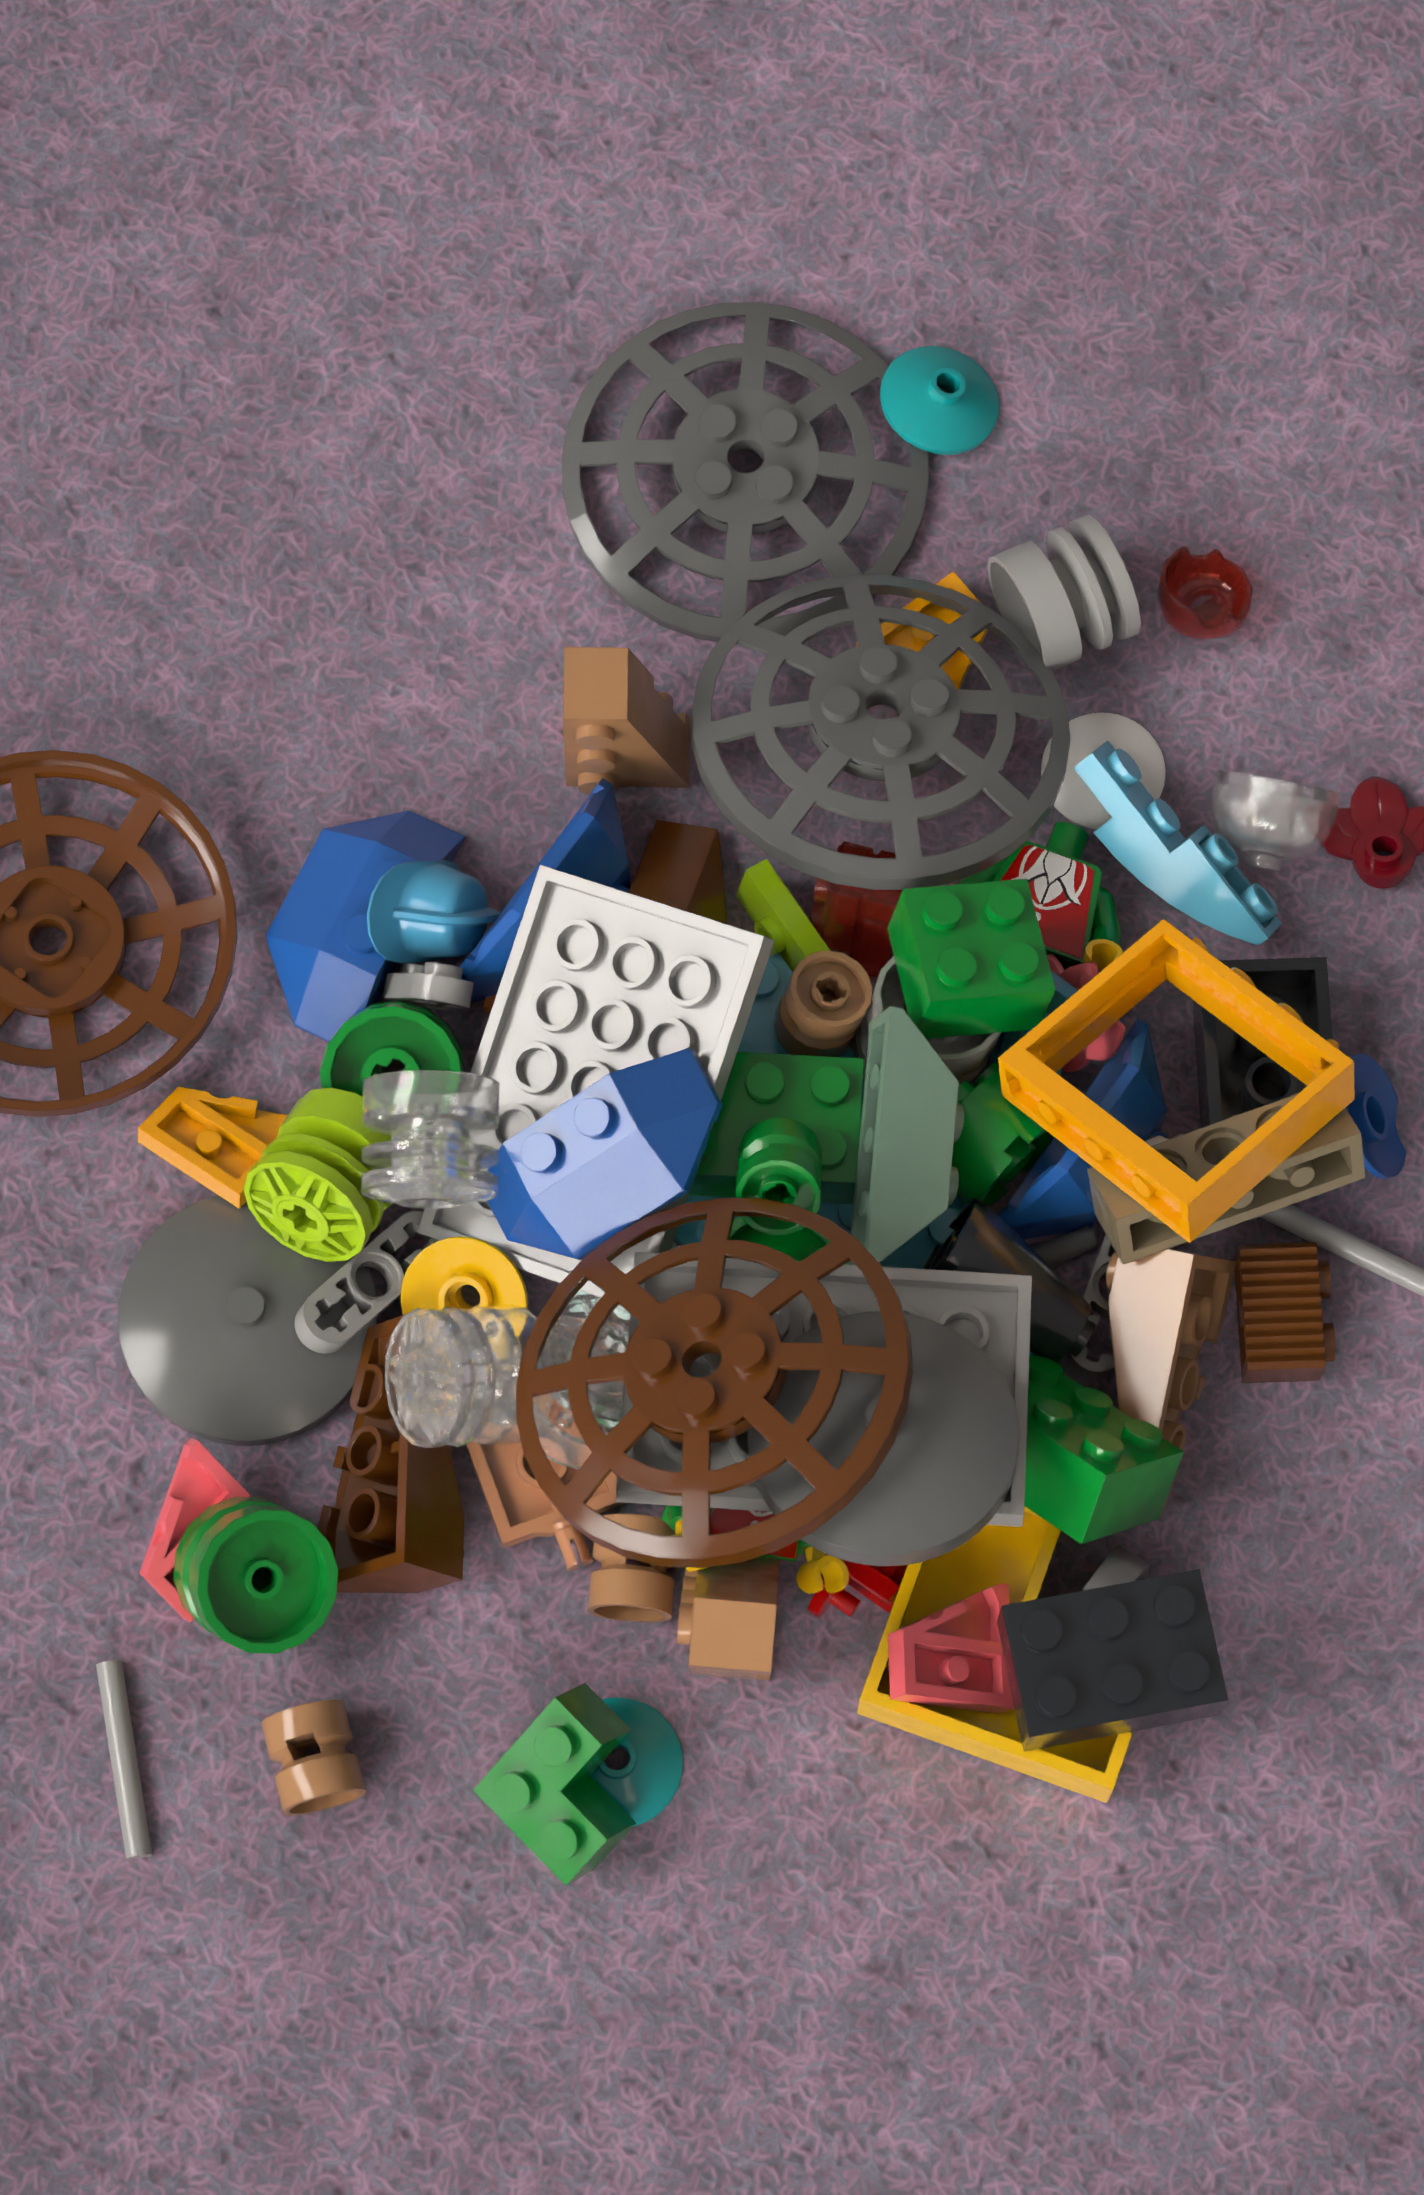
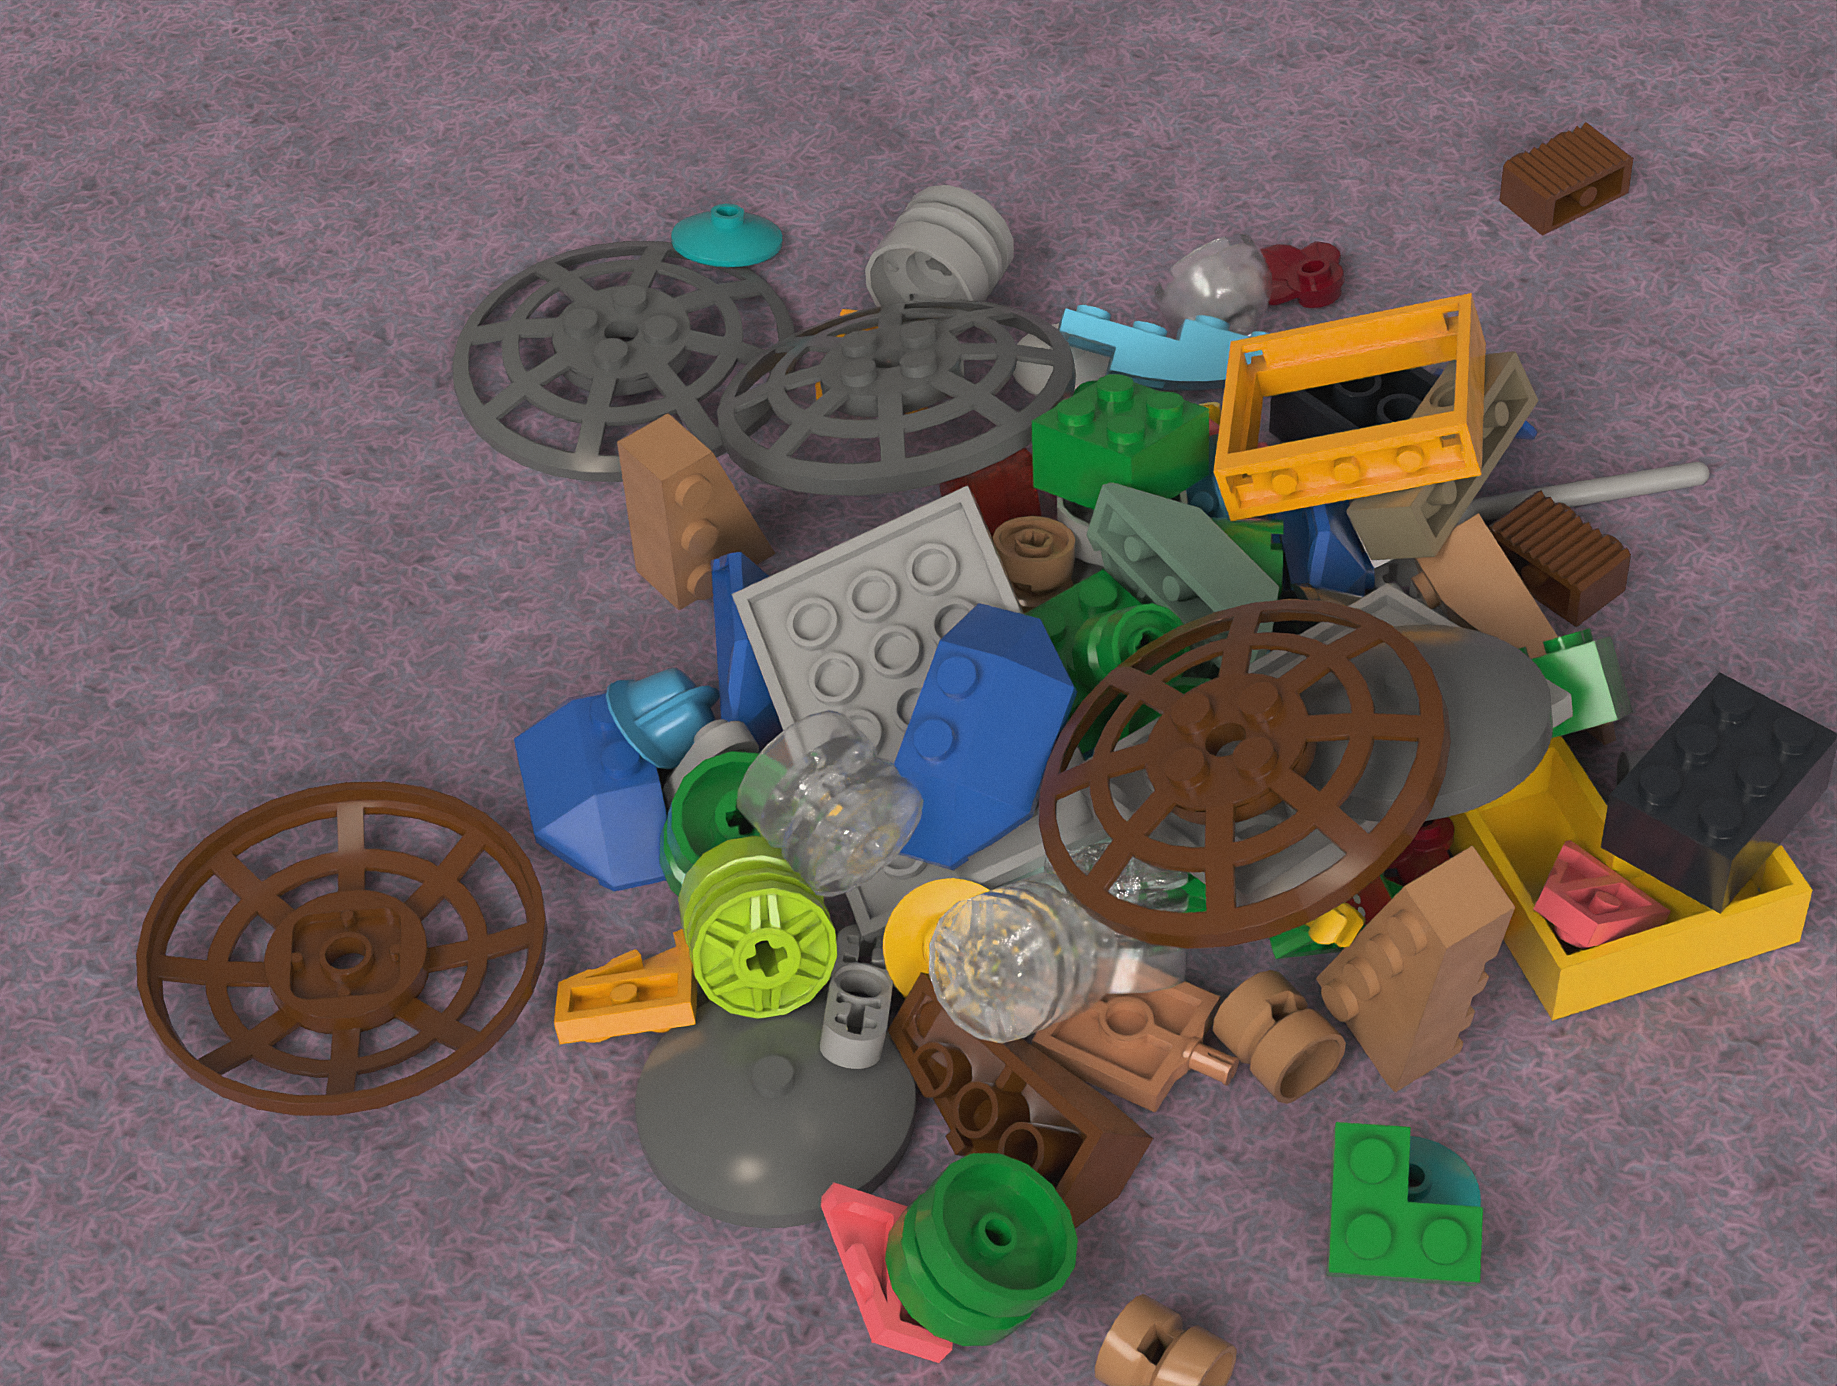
camera: 35 degrees left, 25 degrees down
(1190, 576) = (1037, 221): clear red hair -> none

